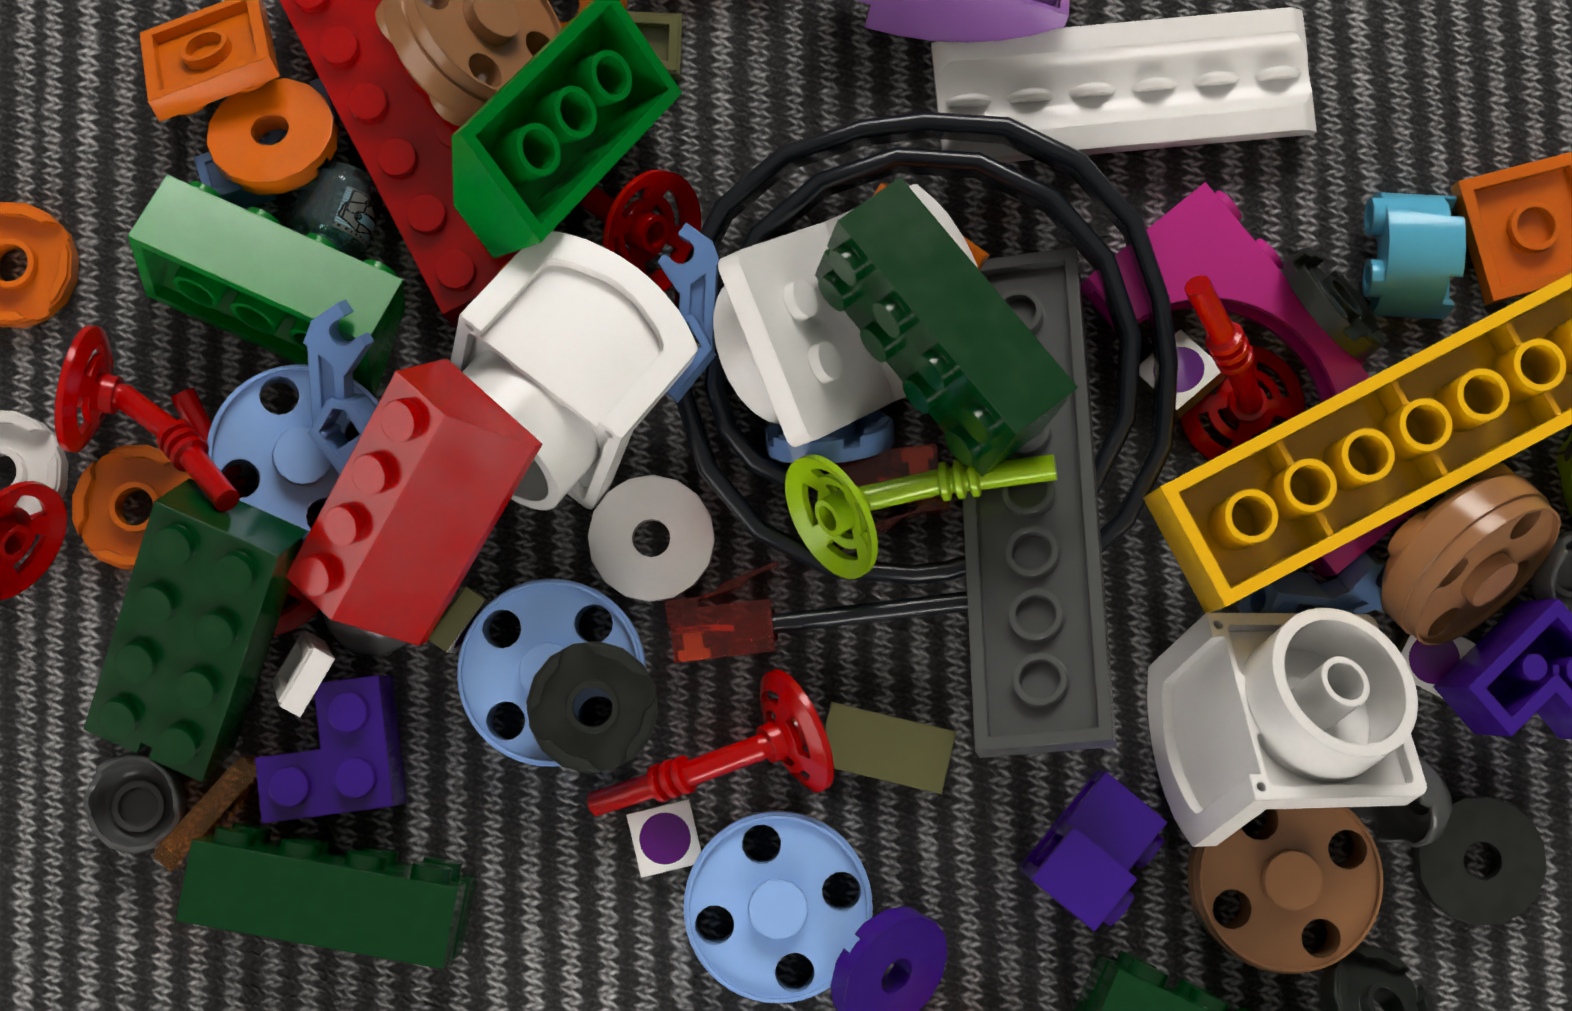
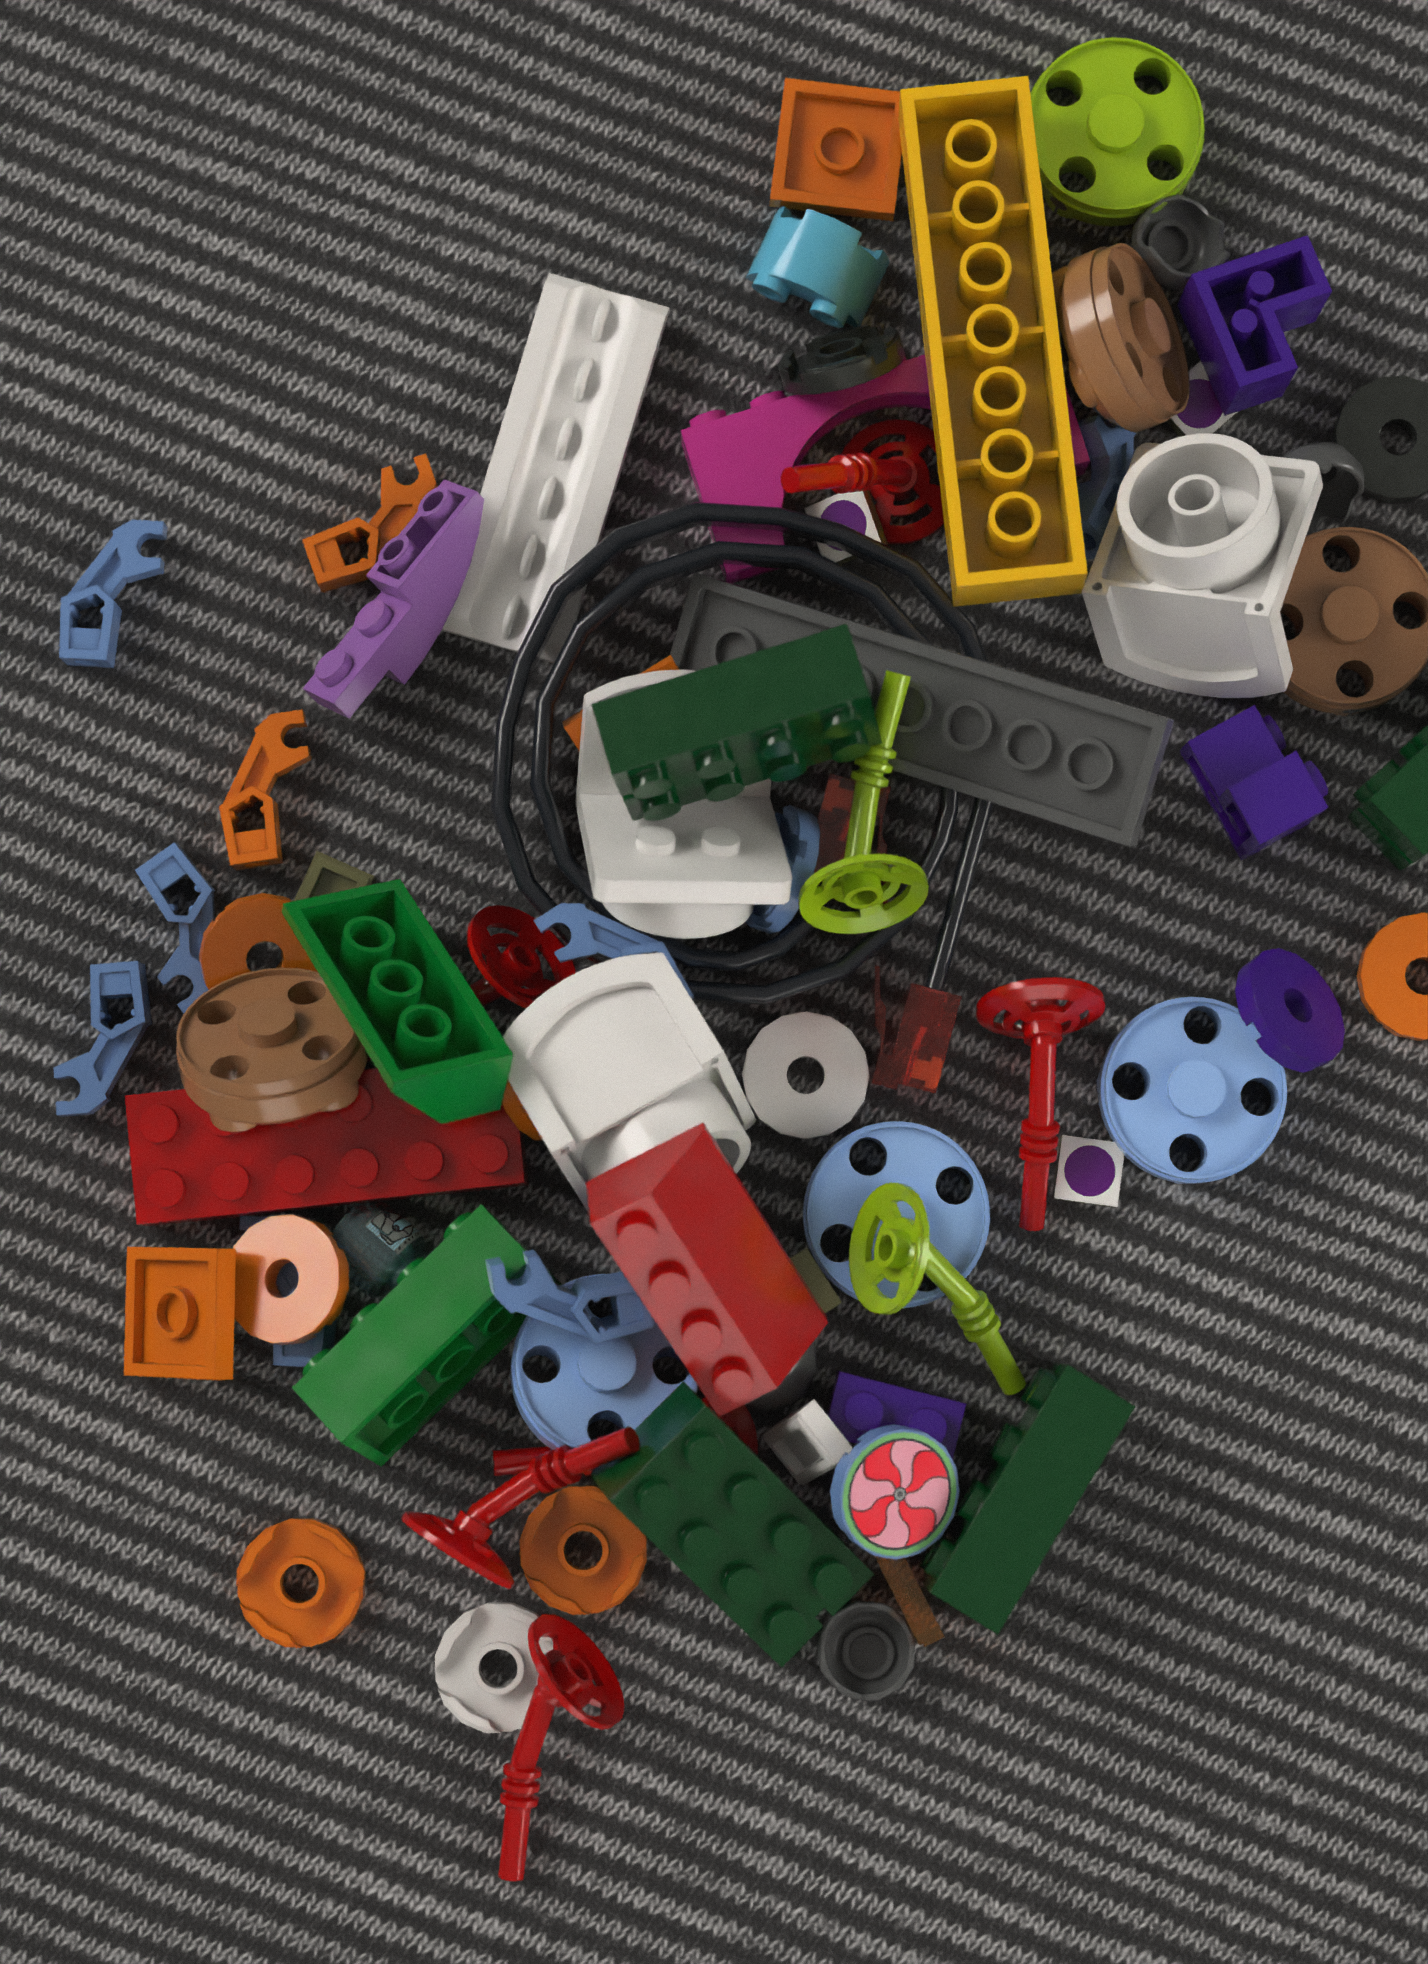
camera: 65 degrees left, 0 degrees up
(276, 770) = (895, 1491): none -> tile
(502, 688) = (903, 1257): none -> lime dish
(601, 745) = (976, 1159): pearl dark grey tile -> none
(889, 747) = (1087, 929): olive tile -> none

